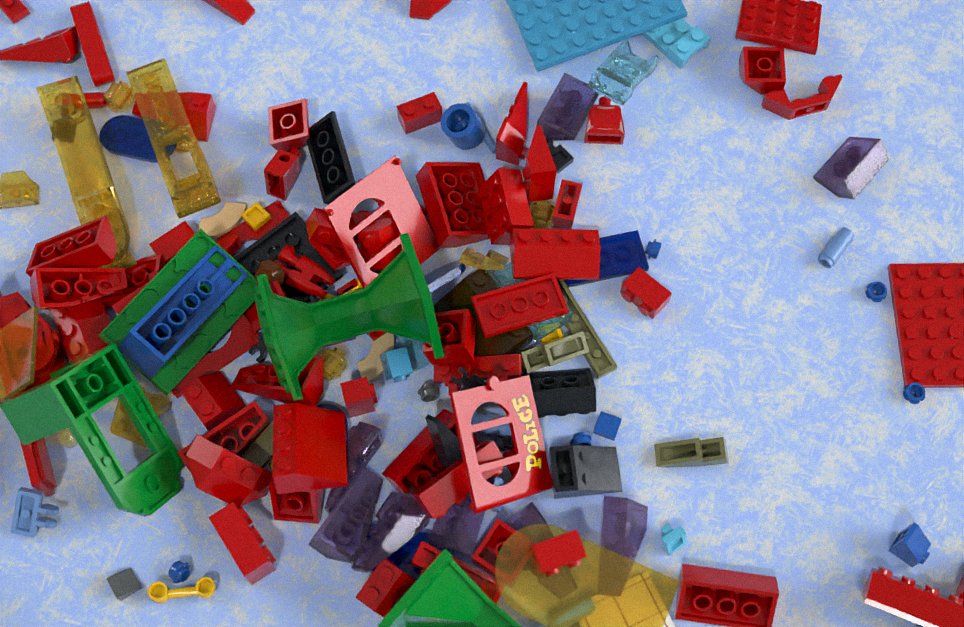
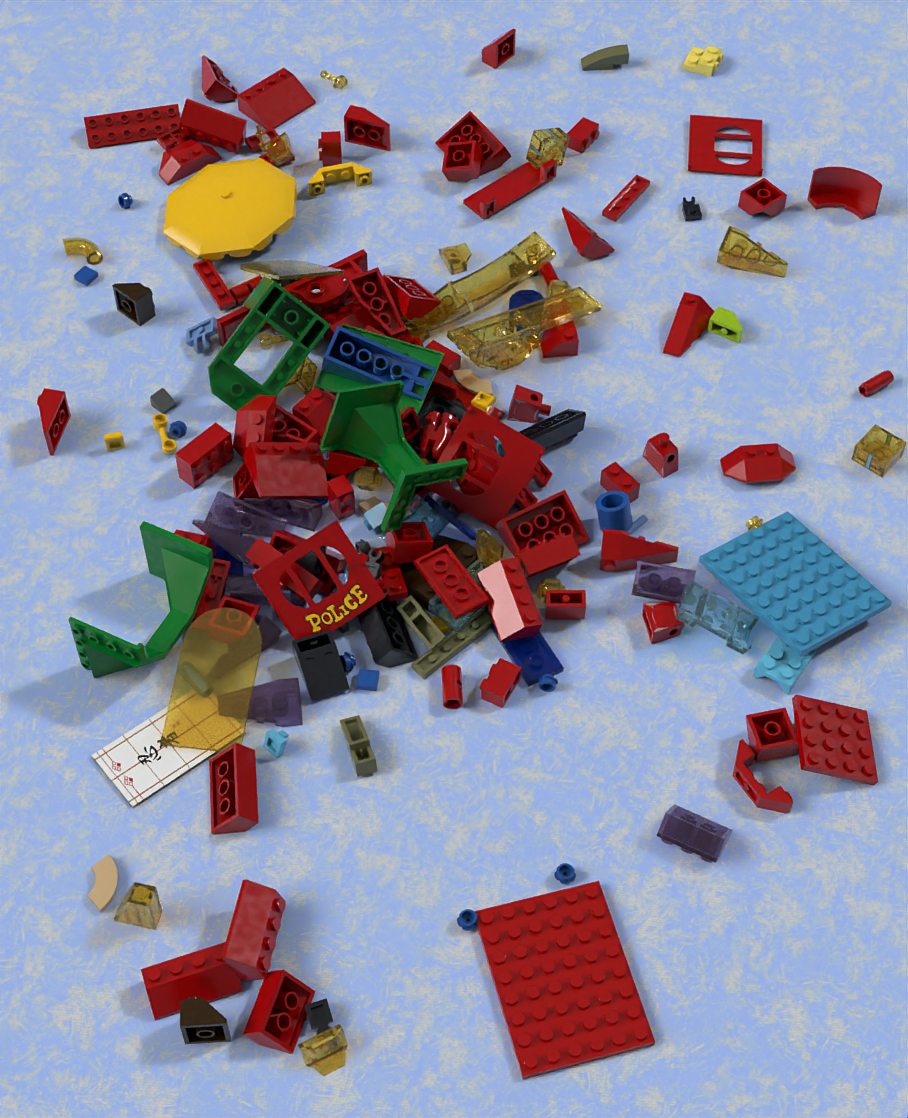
camera: 75 degrees right, 15 degrees down
(92, 44) = (601, 263): red beam -> none
(272, 270) = (425, 410): reddish brown cone -> none
(289, 125) = (569, 395): red slope -> none
(392, 63) = (662, 454): none -> red torso
(504, 10) = (754, 522): none -> clear yellow plate
(539, 170) = (591, 569): red slope -> none
(557, 552) = (236, 644): red brick -> none
(560, 155) = (616, 593): black plate -> none
(637, 342) = (452, 686): none -> red pin
(836, 247) = (600, 832): medium blue piece -> none
(911, 545) = (311, 926): blue slope -> none

